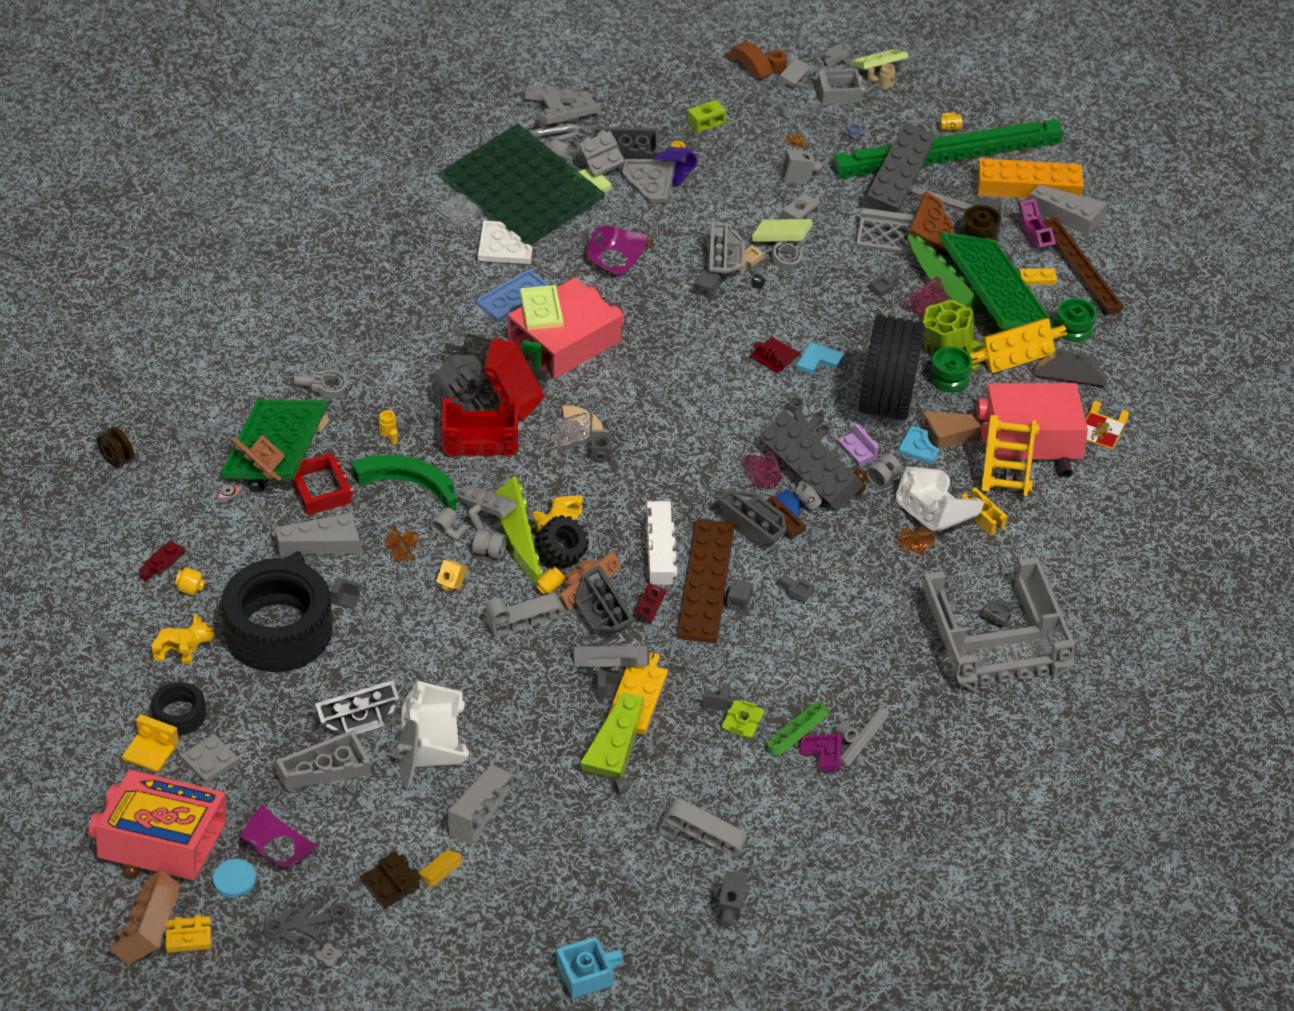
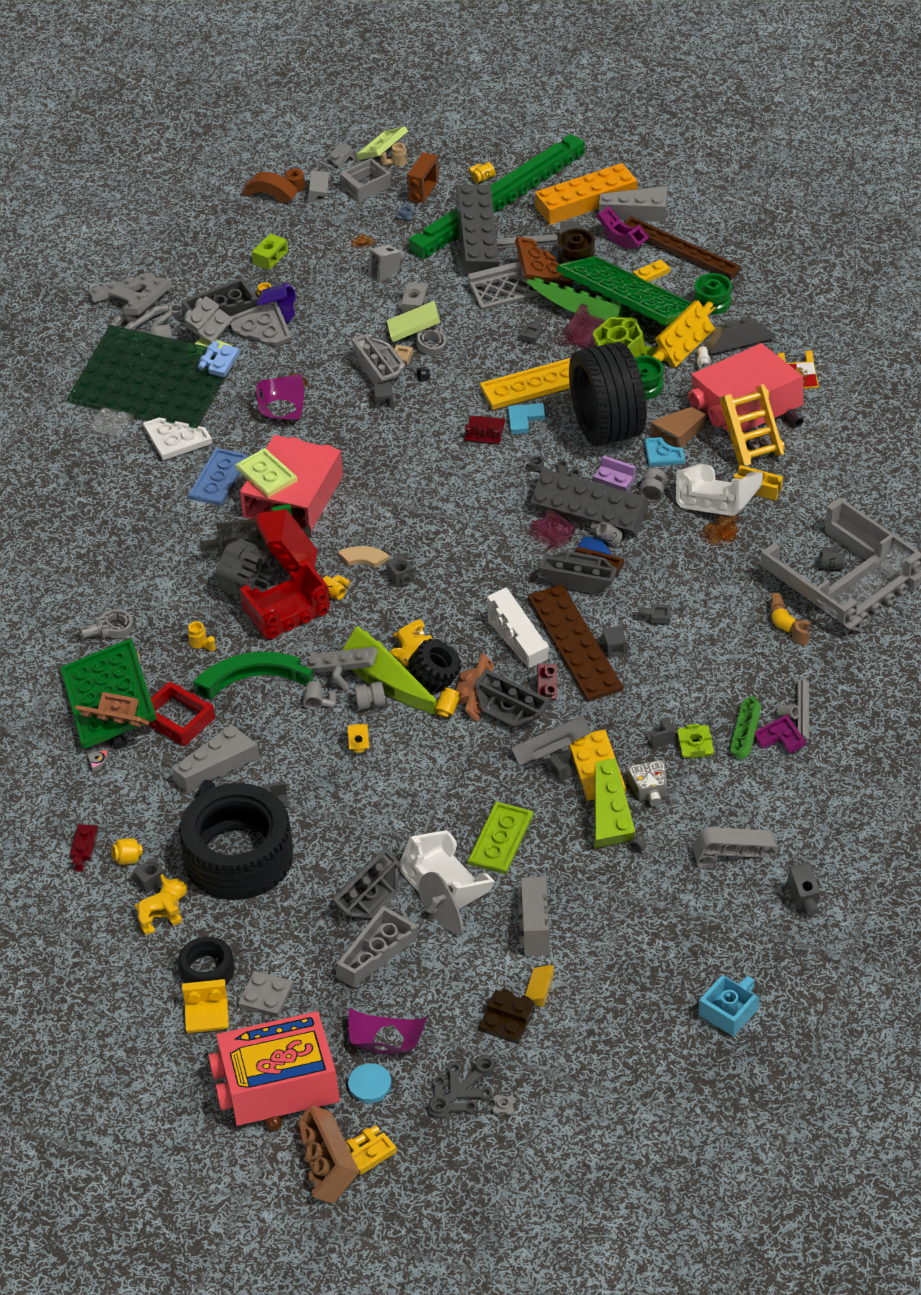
camera: 25 degrees left, 0 degrees up
(190, 607) = (148, 875): none -> dark grey brick
(407, 540) = (294, 729): clear orange hips -> none
(507, 722) = (500, 838): none -> lime tile
(522, 615) = (434, 752): light grey beam -> none
(532, 434) = (336, 586): none -> yellow piece
(573, 431) = (367, 568): clear plate -> none
(585, 195) = (223, 361): none -> light blue plate
(673, 734) = (648, 781): none -> light grey torso
(834, 329) = (527, 384): none -> yellow plate
(899, 94) = (423, 177): none -> dark orange window
(908, 648) = (784, 621): none -> medium nougat piece
(1024, 374) = (703, 358): none -> white pin

